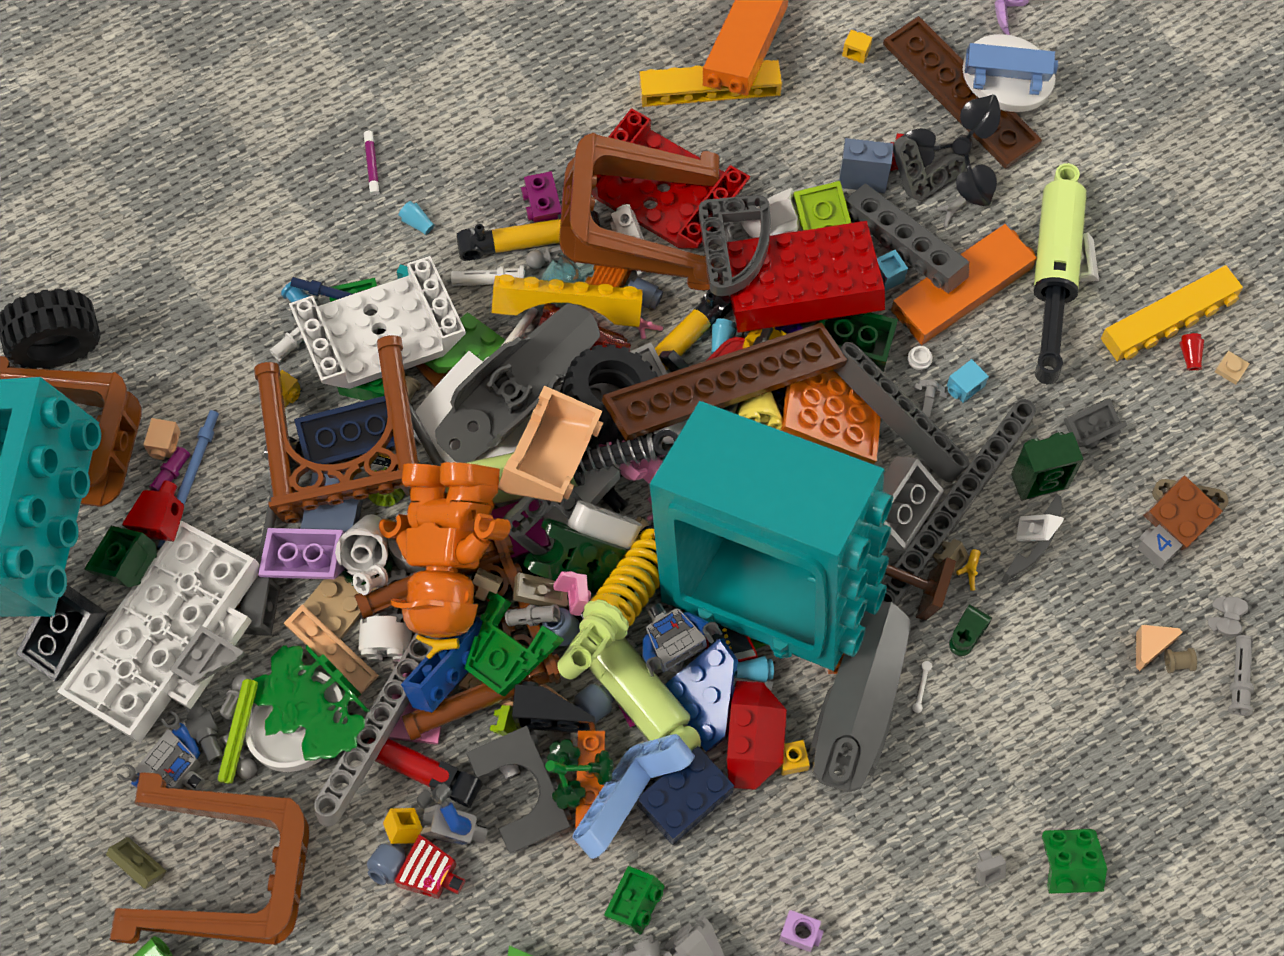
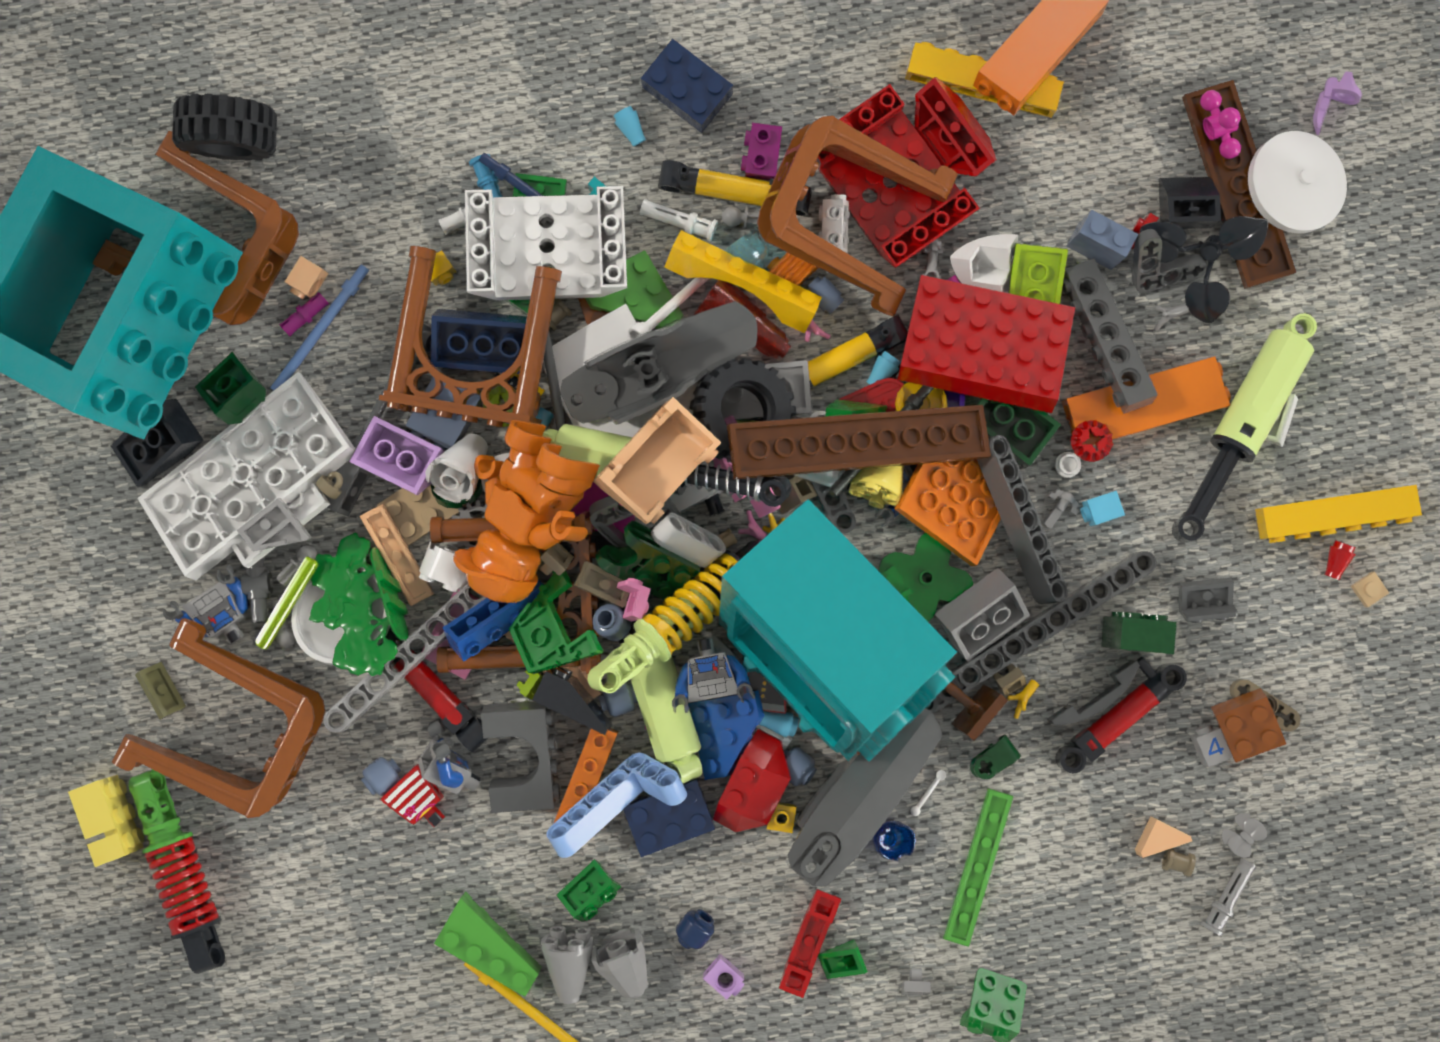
camera: 20 degrees right, 20 degrees up
(156, 513) = (277, 357): red torso -> none
(245, 603) = (328, 487): none -> dark tan tile
(371, 163) = (607, 43): magenta bar -> none
(371, 581) = (449, 510): white bush -> none
(402, 825) = (410, 744): yellow plate -> none
(439, 644) = (490, 603): yellow bar -> none
(455, 169) = (687, 85): none -> dark blue brick
(532, 615) = (587, 606): light grey pin -> none
(564, 758) = (562, 780): dark green plant -> none
(672, 360) = (822, 387): black tile -> none
(698, 127) = (952, 130): none -> red wedge
(721, 214) = (932, 246): dark grey beam -> none
(753, 895) = (695, 929): none -> dark blue head
(794, 702) = (800, 766): none -> sand blue head
(857, 46) = (1153, 92): yellow plate -> none
(869, 865) = (808, 942): none -> red slope
(892, 269) = (1078, 363): medium azure brick -> none
(909, 736) = (894, 840): none -> clear blue hair
(910, 870) = (842, 961): none -> green slope
(924, 47) = (1221, 124): none -> dark pink piece
(929, 113) = (1189, 202): none -> black slope
(930, 334) = (1088, 452): none -> red gear
(999, 738) = (978, 867): none -> bright green tile
(1010, 63) = (1301, 180): medium blue brick -> none
(1037, 527) = (1103, 688): white slope -> none
(1066, 550) = (1091, 741): none -> piece

